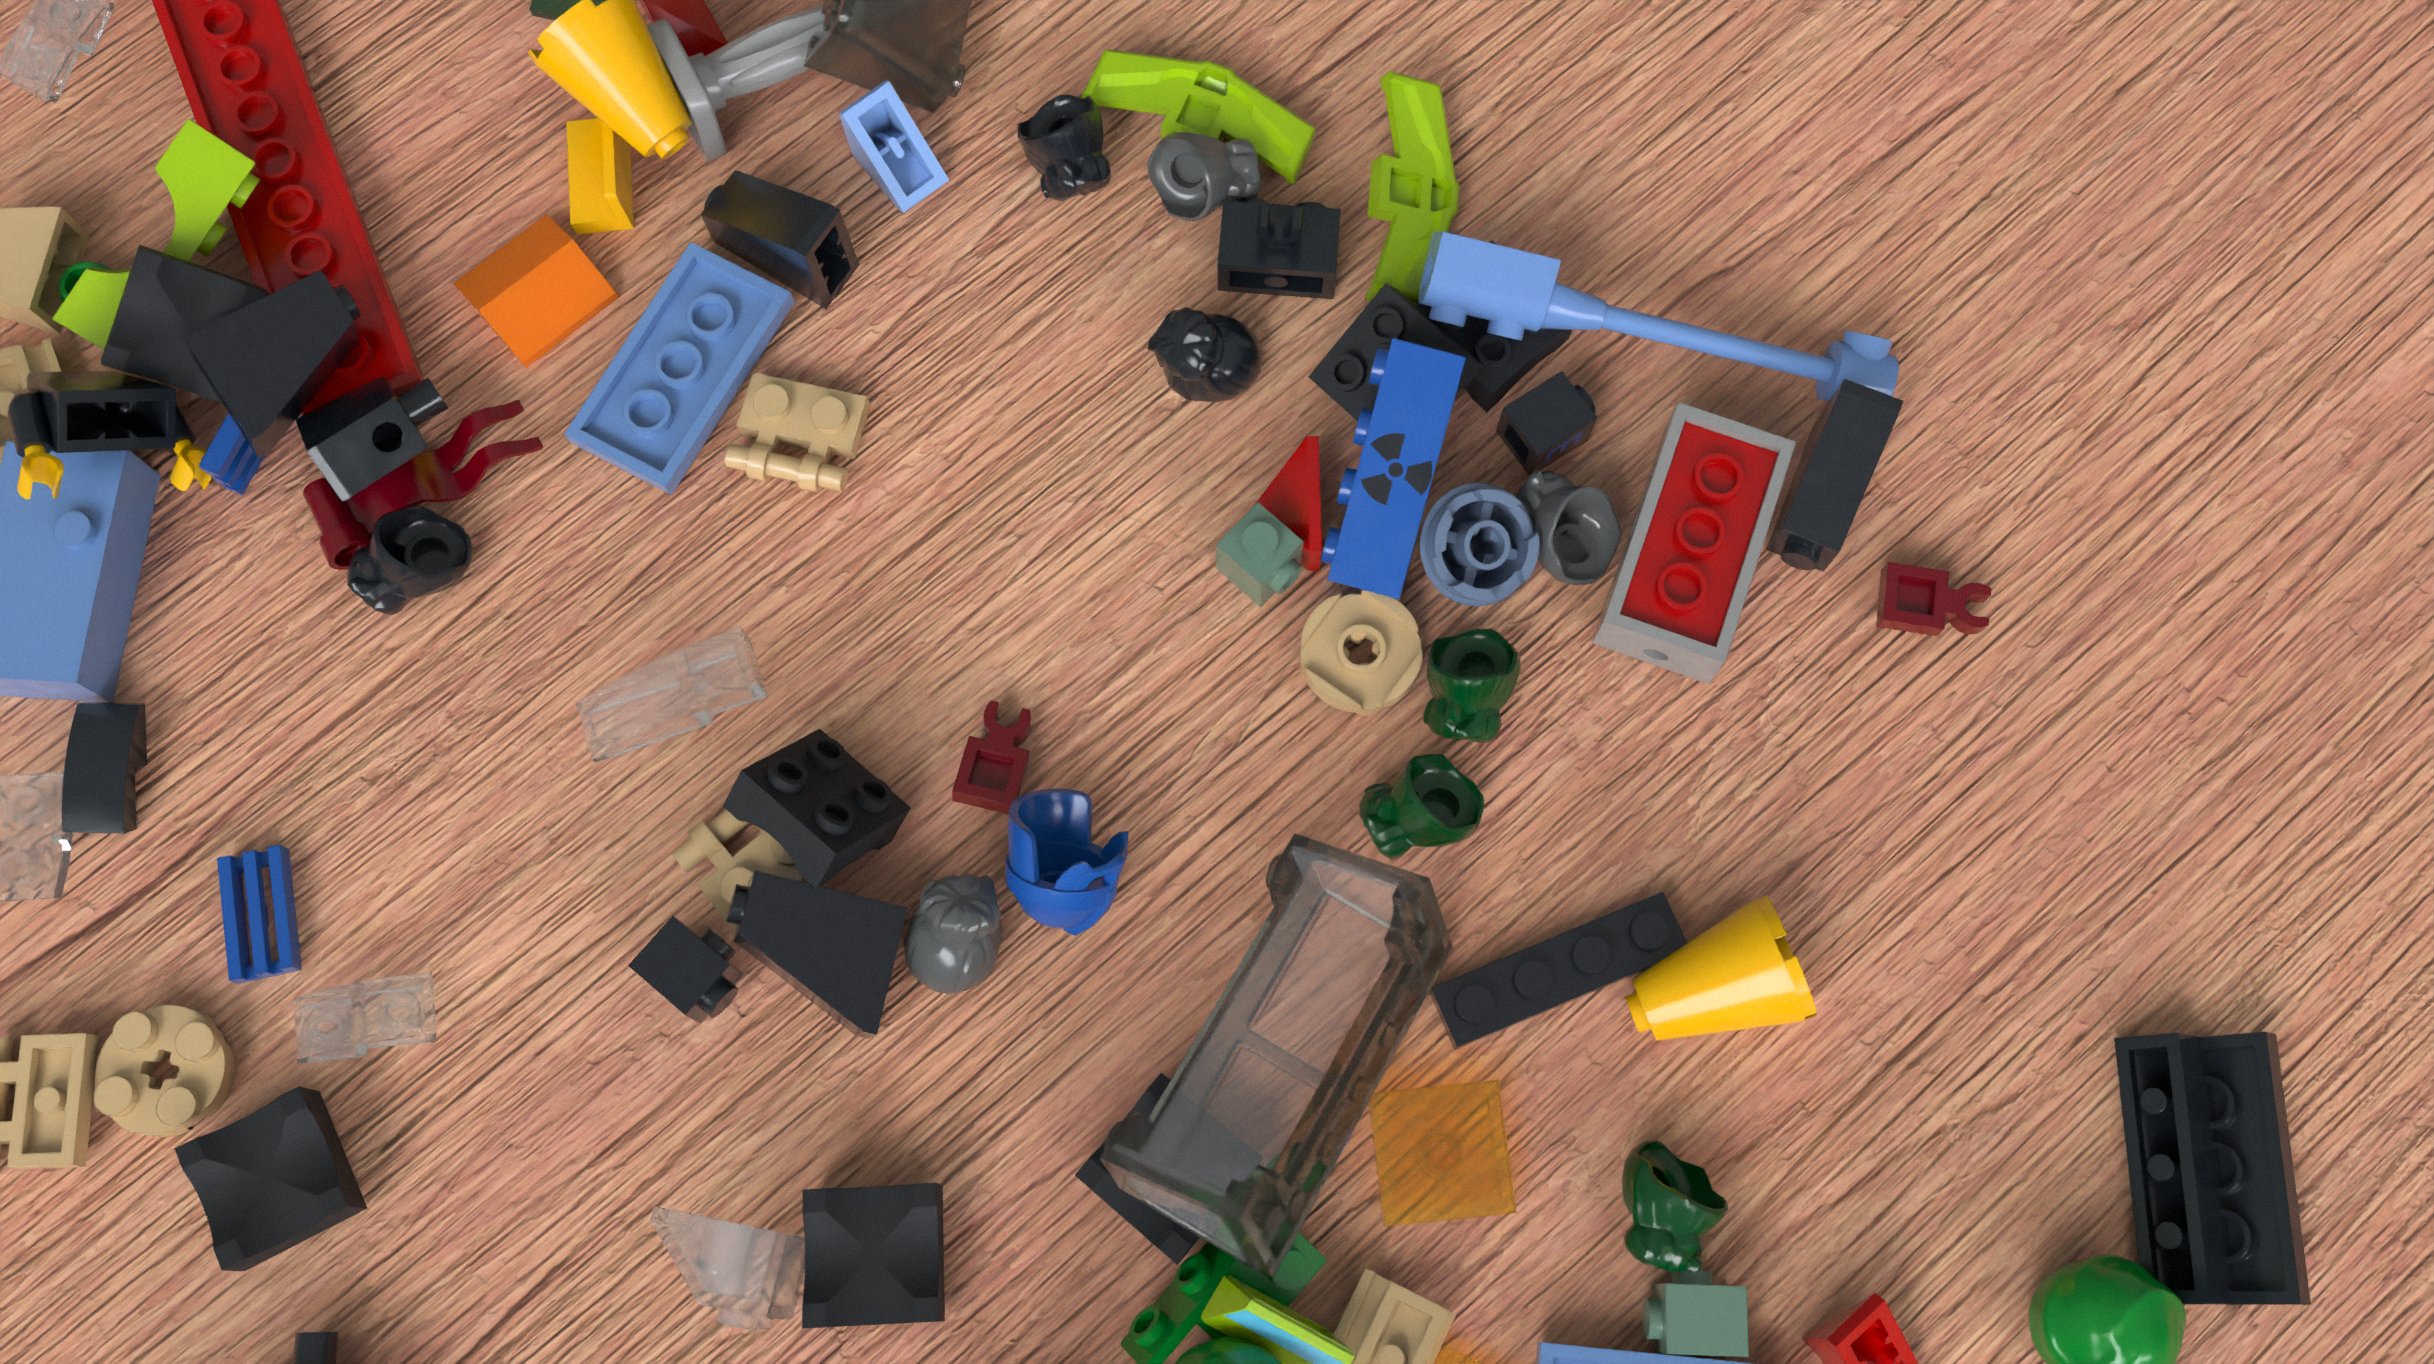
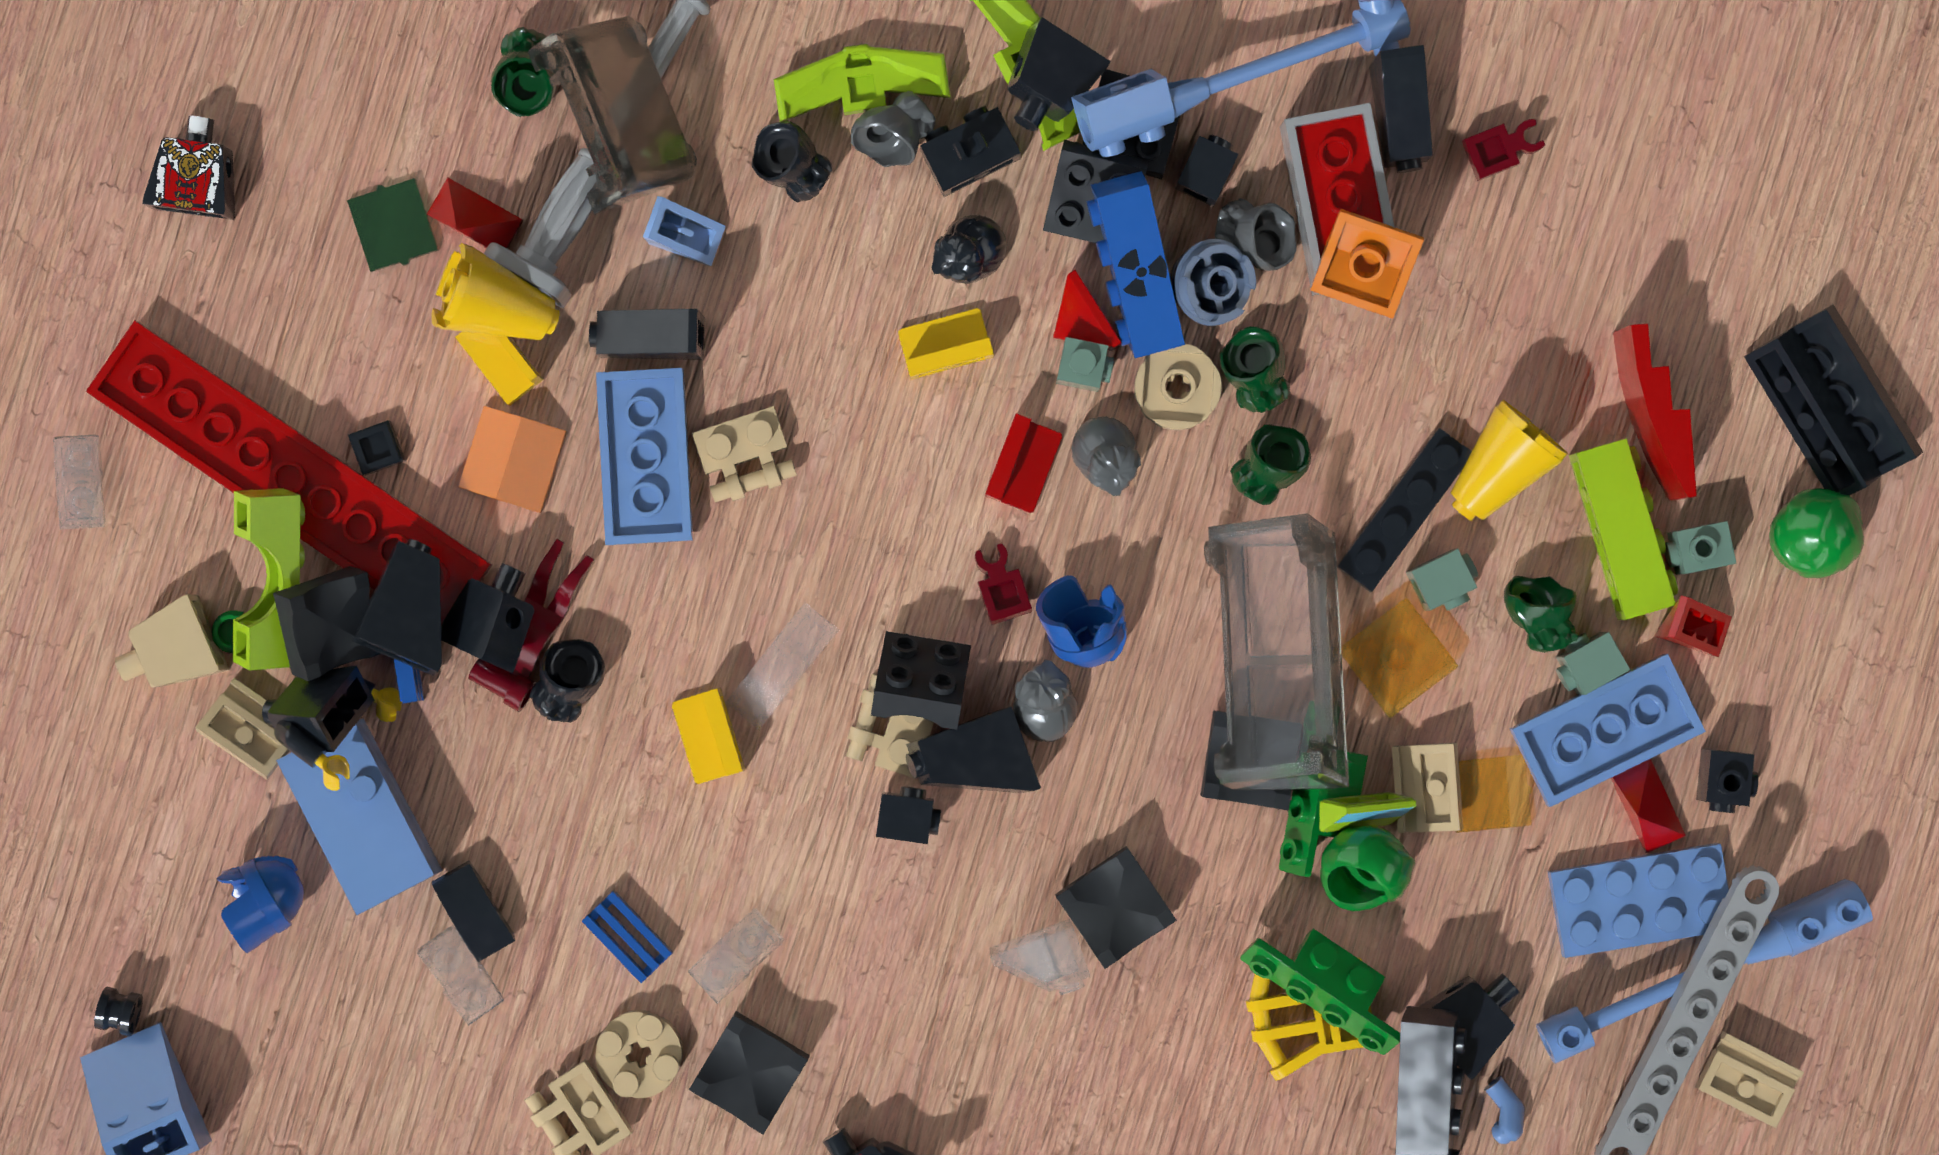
camera: 30 degrees left, 15 degrees up
(397, 191) = (376, 448): none -> black tile
(530, 730) = (708, 736): none -> yellow panel
(1112, 447) = (945, 343): none -> yellow panel
(1114, 631) = (1023, 464): none -> red panel
(1224, 679) = (1106, 454): none -> dark grey hair
(1423, 195) = (1050, 72): none -> black torso
(1560, 1087) = (1444, 580): none -> sand green brick
(1686, 616) = (1366, 263): none -> orange slope
(1837, 1165) = (1623, 529): none -> lime brick
(1930, 1251) = (1700, 548): none -> sand green brick
(1958, 1048) = (1661, 431): none -> red slope

